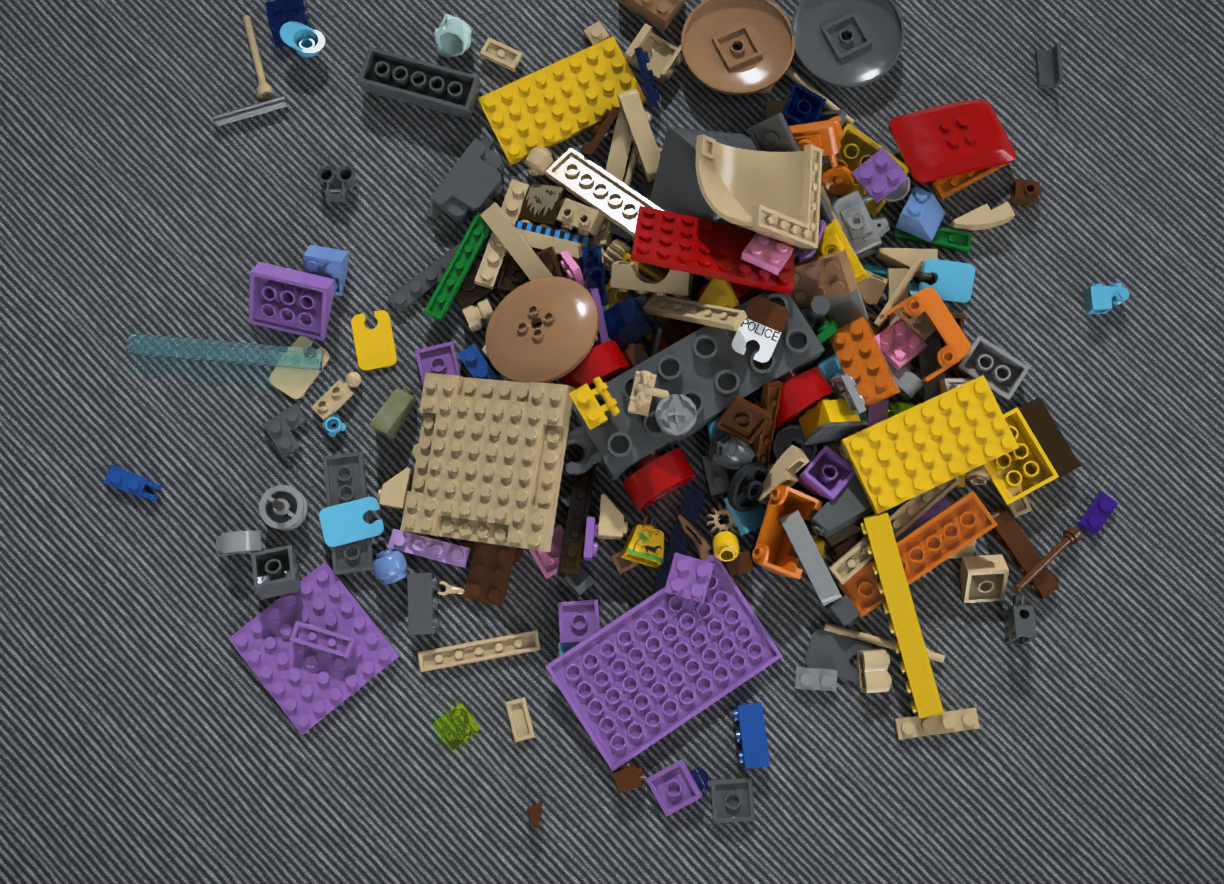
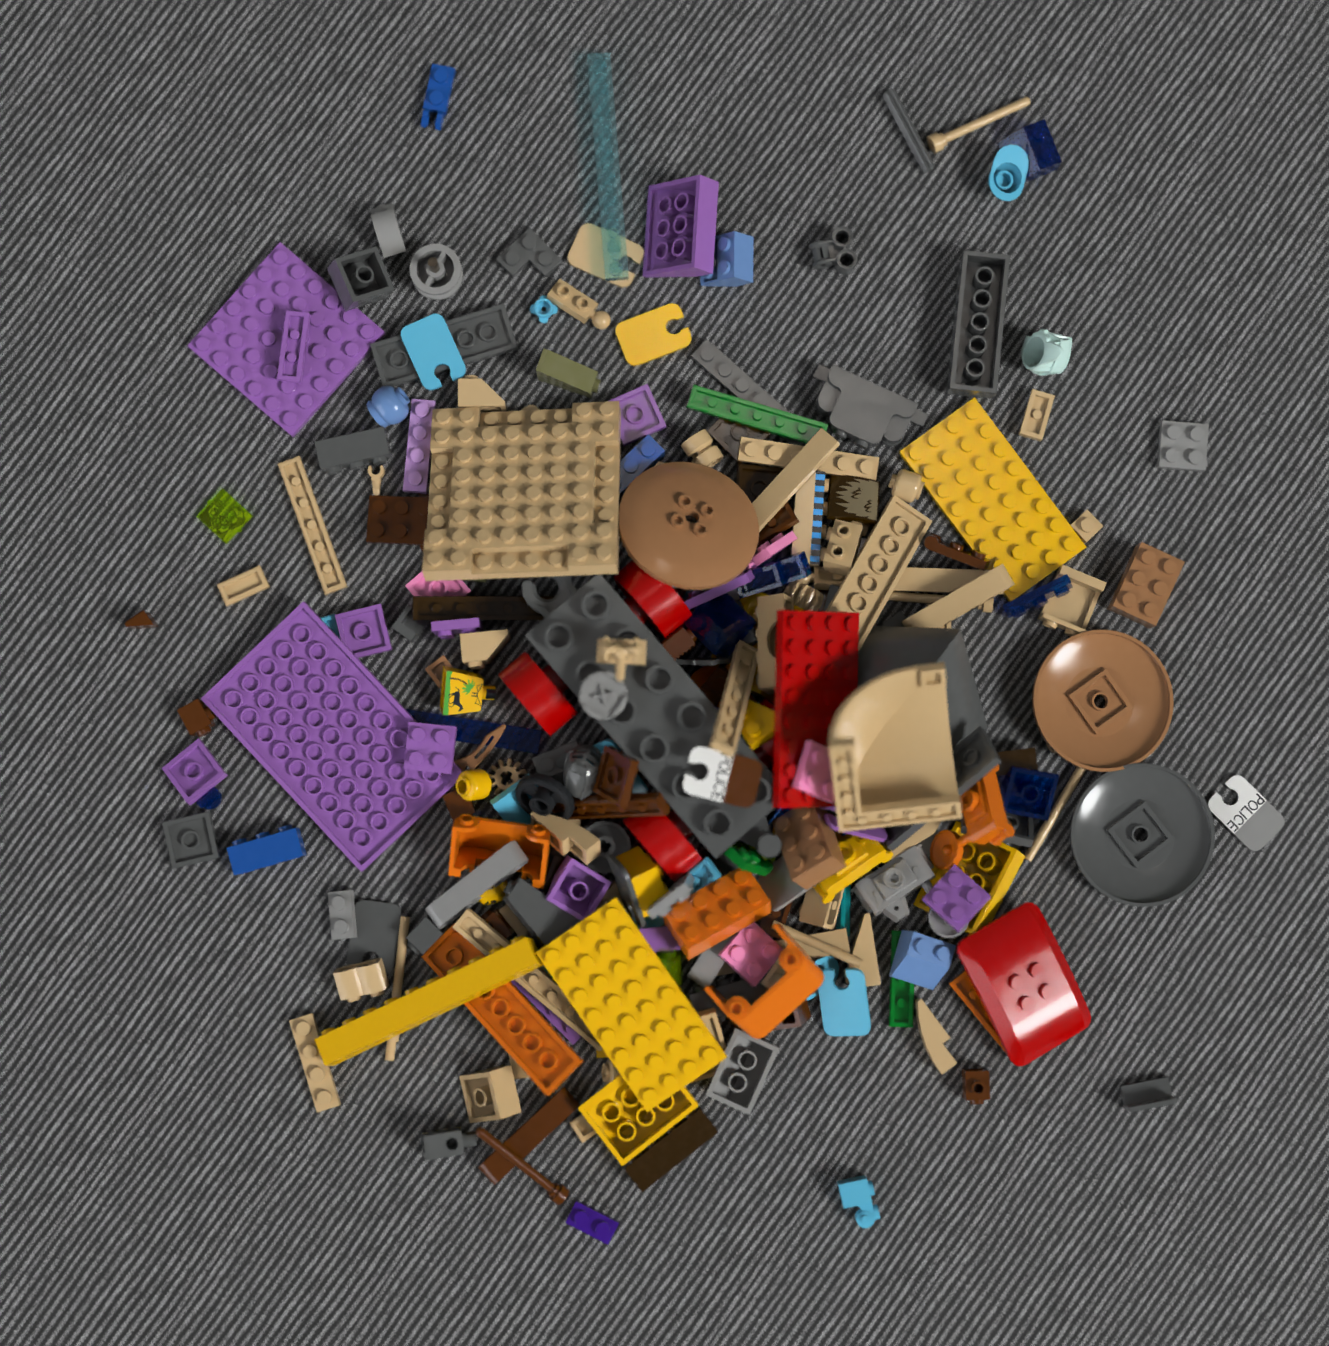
camera: 80 degrees right, 5 degrees up
(588, 406) = (595, 593): yellow plate -> none

